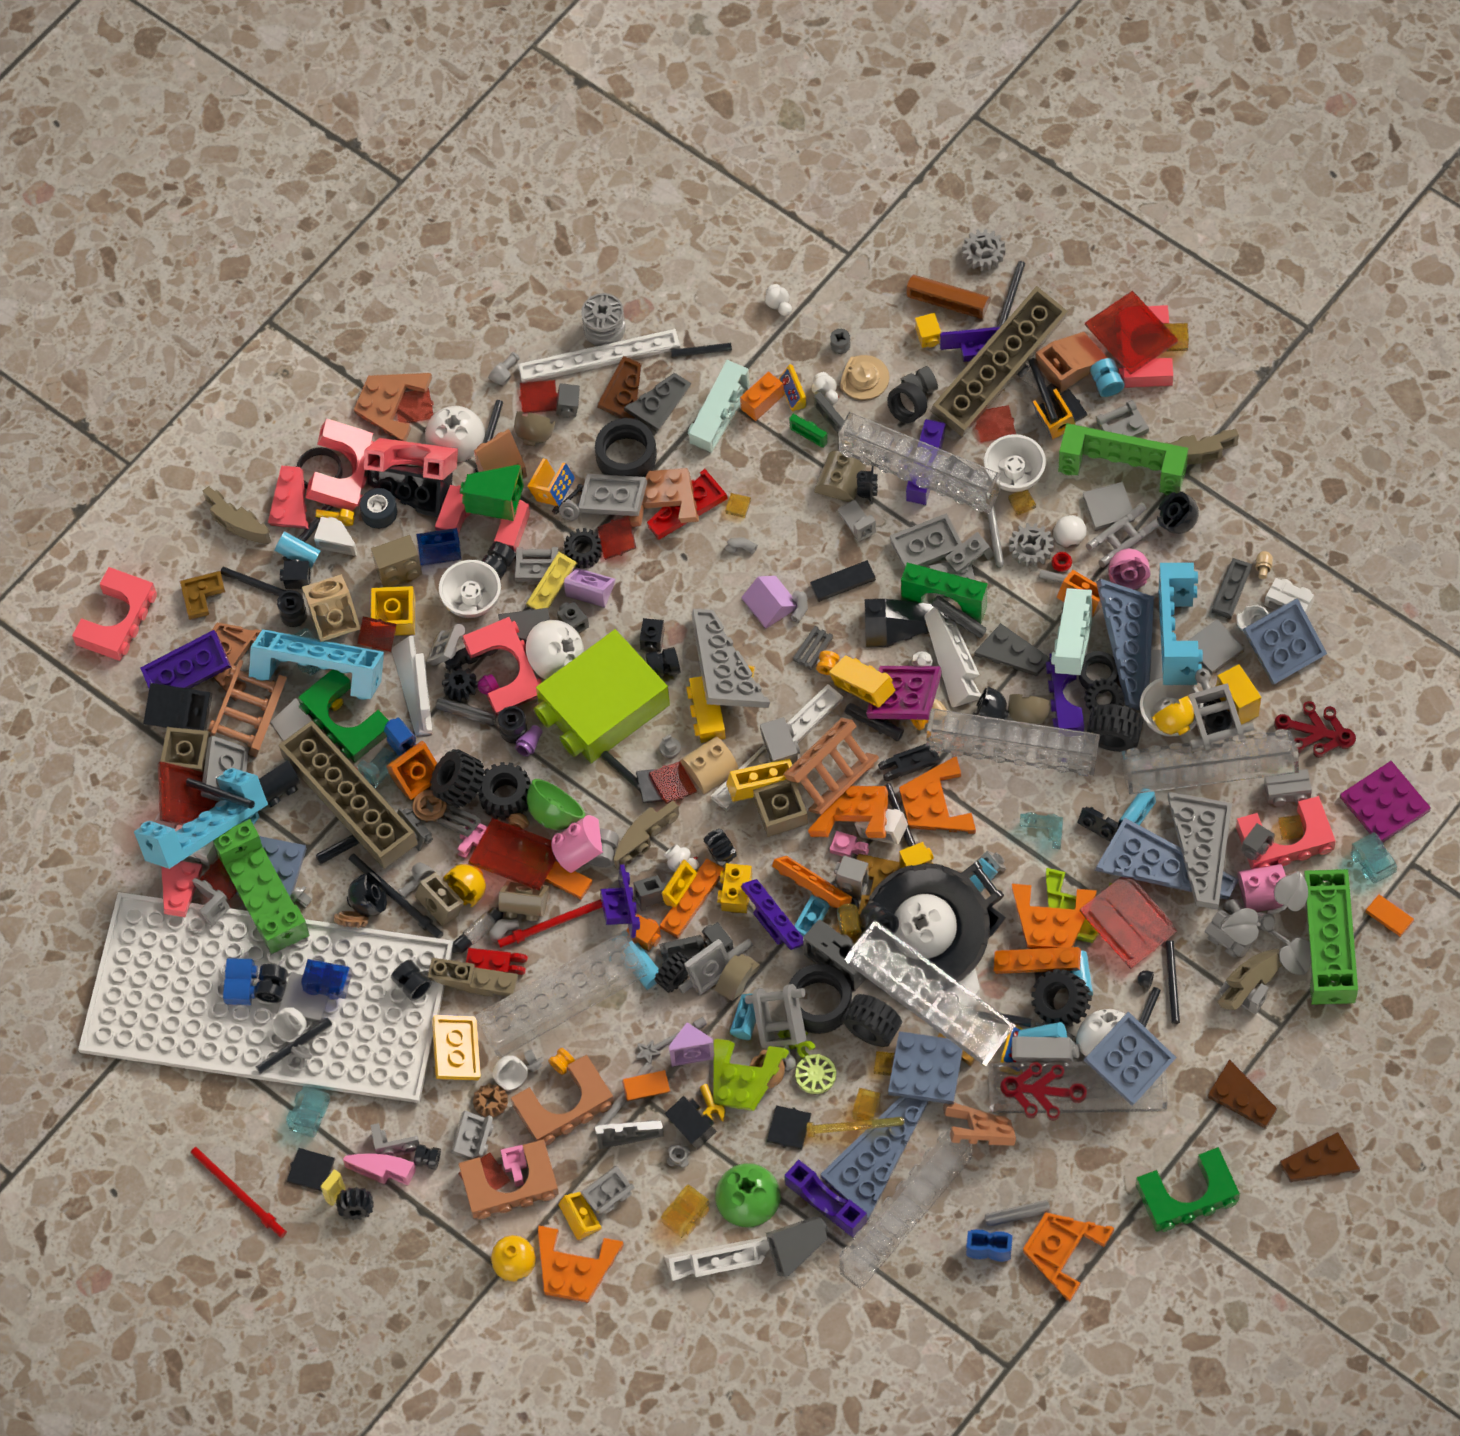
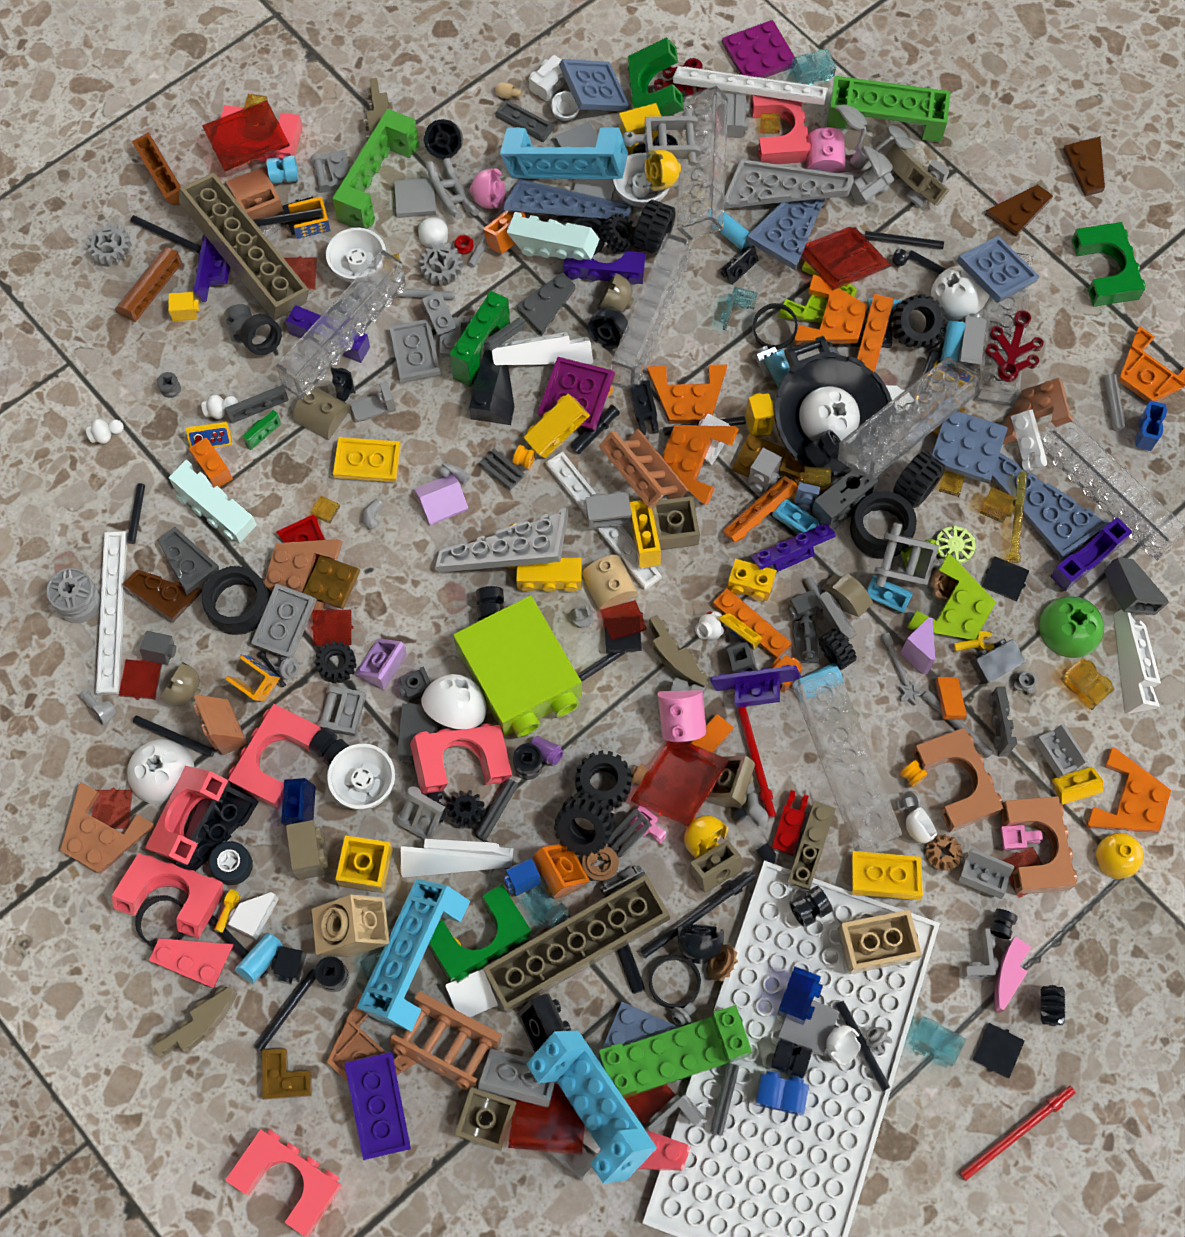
camera: 85 degrees left, 5 degrees up
(177, 707) = (429, 1120): black slope -> none
(220, 793) = (559, 1080): black bar -> none
(231, 938) = (724, 1099): none -> dark grey axle
(321, 868) = (679, 958): none -> black tyre
(332, 1187) = (1035, 1025): light yellow tile -> none
(377, 633) = (389, 883): clear red piece -> none
(386, 1041) = (879, 941): none -> tan brick
(420, 872) = (679, 883): light grey bar -> none
(487, 684) = (473, 780): magenta plate -> none
(493, 492) = (259, 729): green slope -> none
(551, 582) = (371, 697): light yellow tile -> none
(552, 805) = (635, 732): bright green piece -> none
(652, 635) = (455, 611): black brick -> none
(657, 524) = (332, 581): none -> pearl gold plate
(720, 847) = (707, 584): black gear -> none
(796, 527) = (367, 459): none -> yellow plate
(830, 915) = (806, 496): none -> sand blue plate
(842, 581) = (435, 431): black tile -> none
(846, 844) = (721, 477): bright pink plate -> none
(864, 377) = (215, 372): tan hat -> none
(922, 659) = (540, 377): white plate -> none
(959, 1116) = (1029, 440): none -> white plate
(1020, 849) = (772, 306): none -> black tyre
(1080, 270) = (158, 168): none -> dark orange brick
(1257, 842) = (793, 139): dark grey brick -> none
(1321, 685) = (643, 67): none -> green arch
(1322, 793) = (751, 85): none -> white tile
(1389, 915) = (868, 68): orange tile -> none

